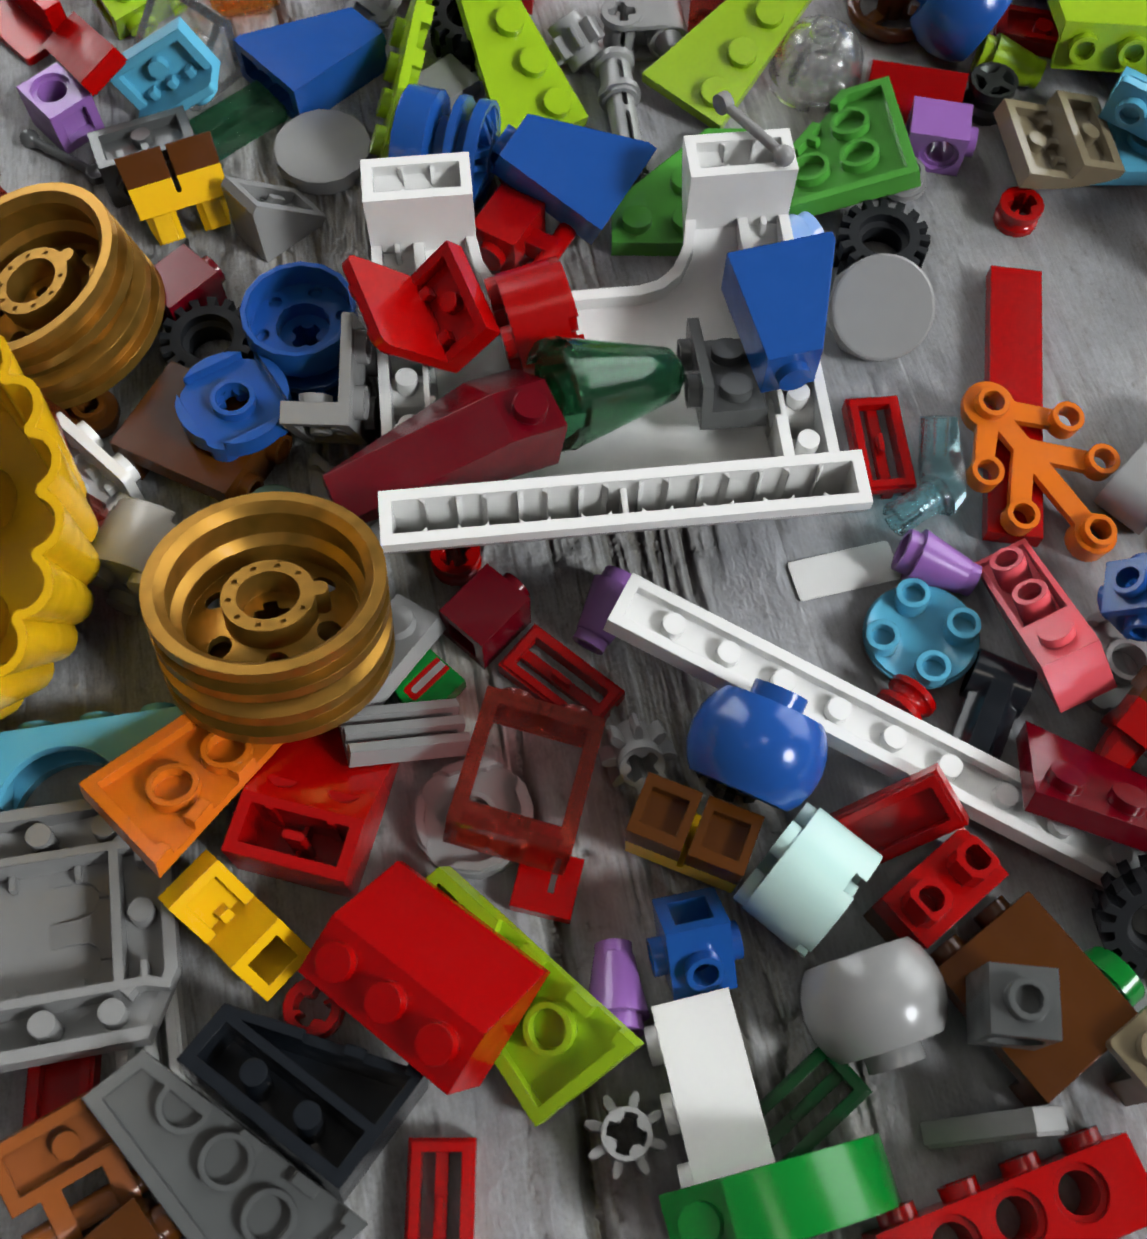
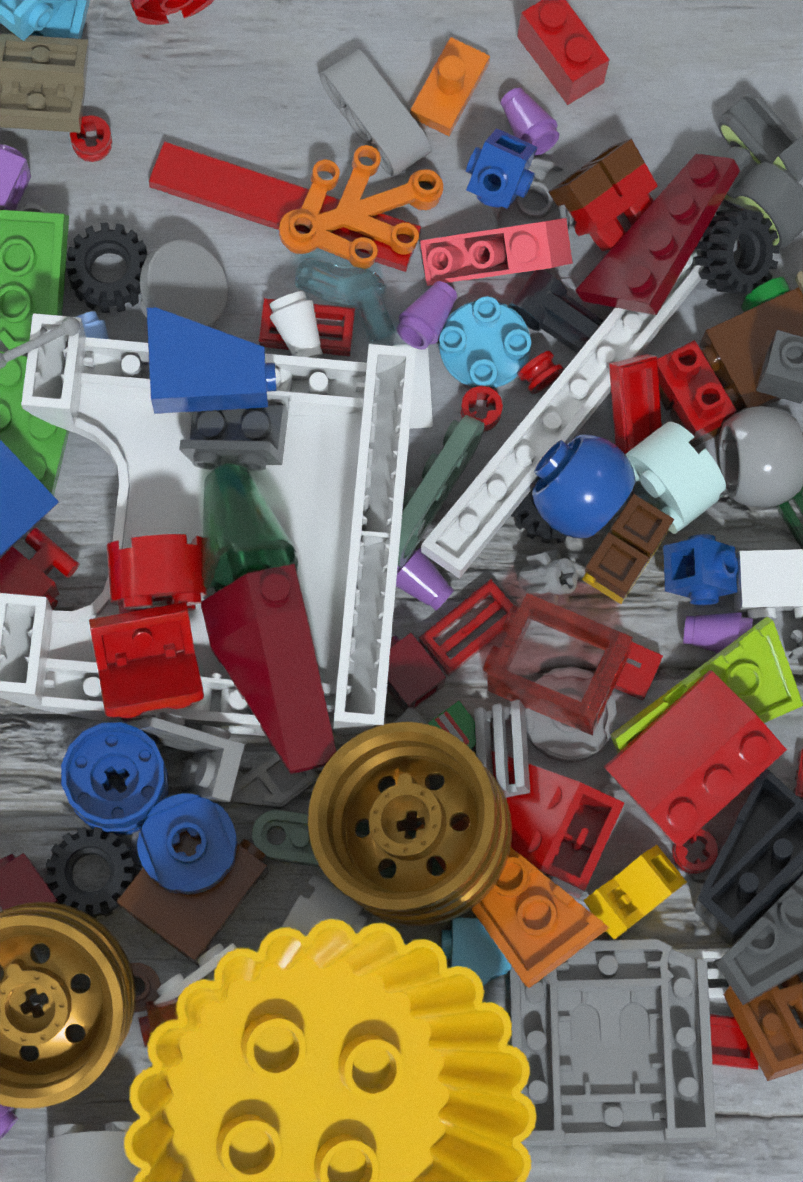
camera: 85 degrees left, 10 degrees up
(731, 597) = (439, 478): none -> sand green plate
(847, 633) = (492, 398): none -> red bush
(875, 419) = (297, 324): none -> white cone

